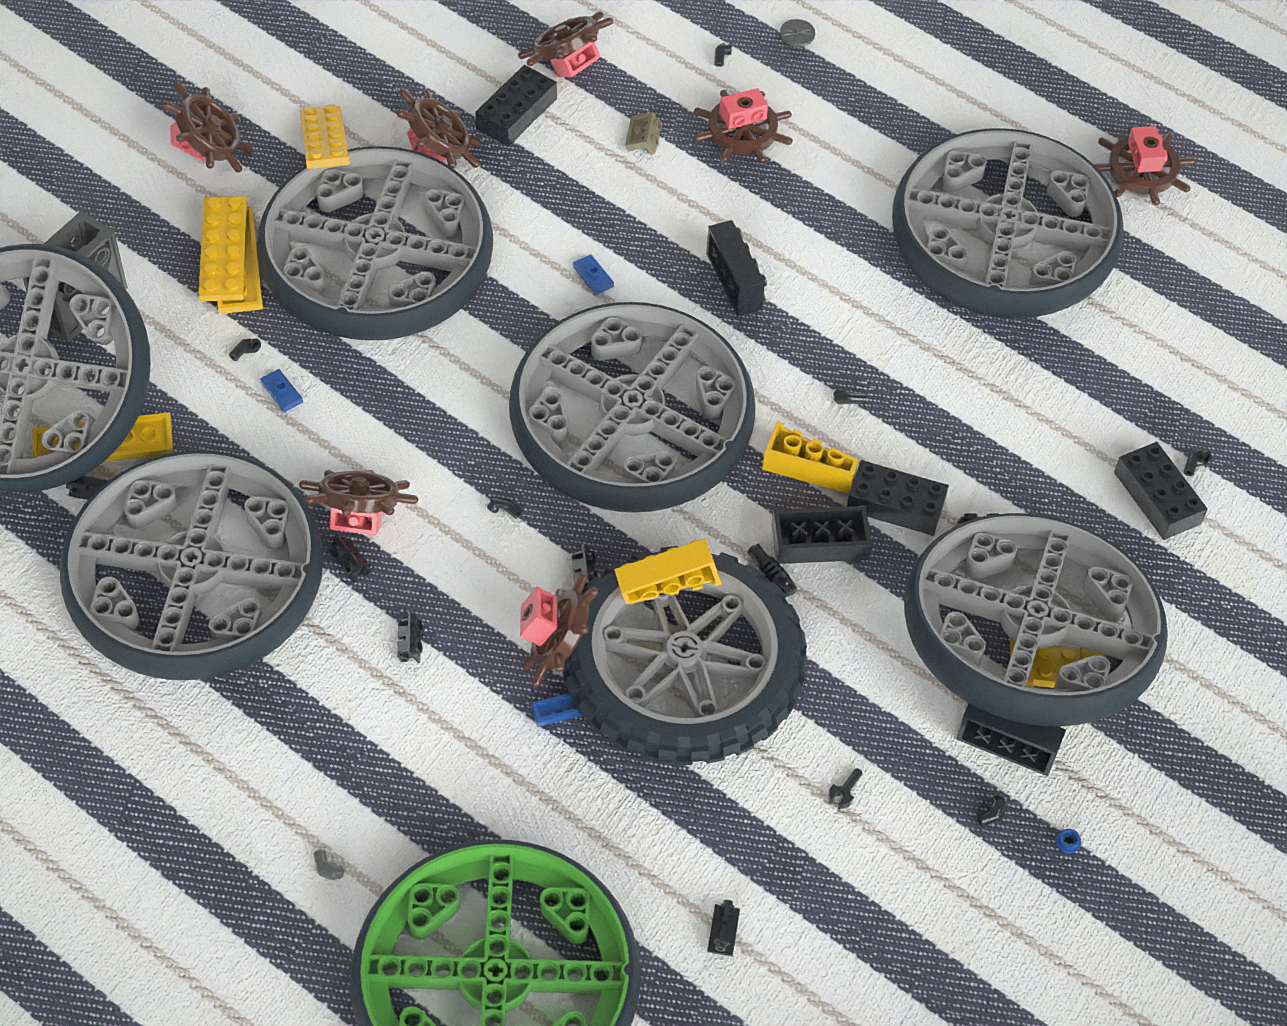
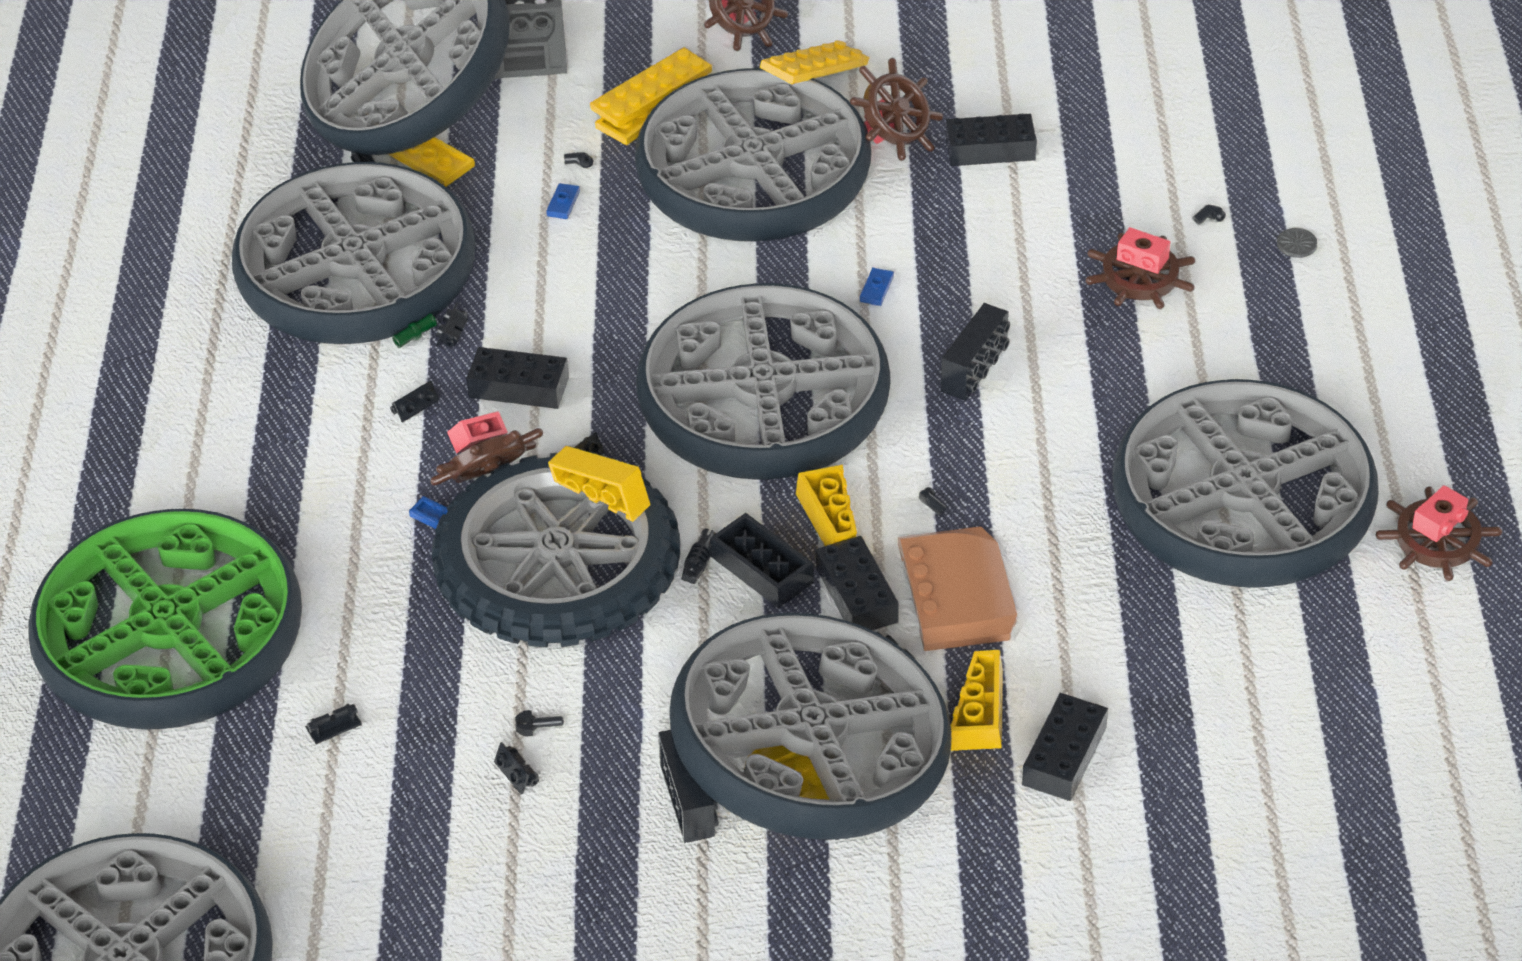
camera: 55 degrees right, 10 degrees down
(325, 868) = (175, 479): dark grey arm -> none
(327, 585) = (414, 330): none -> dark green pin
(358, 499) = (496, 290): reddish brown brick -> none
(461, 552) = (518, 377): none -> black brick
(506, 504) = (589, 371): black arm -> none
(568, 44) = (1083, 115): reddish brown brick -> none
(643, 132) = (1059, 224): dark tan bracket -> none
(886, 836) = (513, 767): none -> black hinge
(947, 442) = (958, 588): none -> nougat slope
(995, 813) = (609, 825): black arm -> none
(1071, 835) = (625, 882): blue plate -> none
(1080, 502) = (979, 710): none -> yellow wedge
(1195, 460) = (1133, 755): black arm -> none

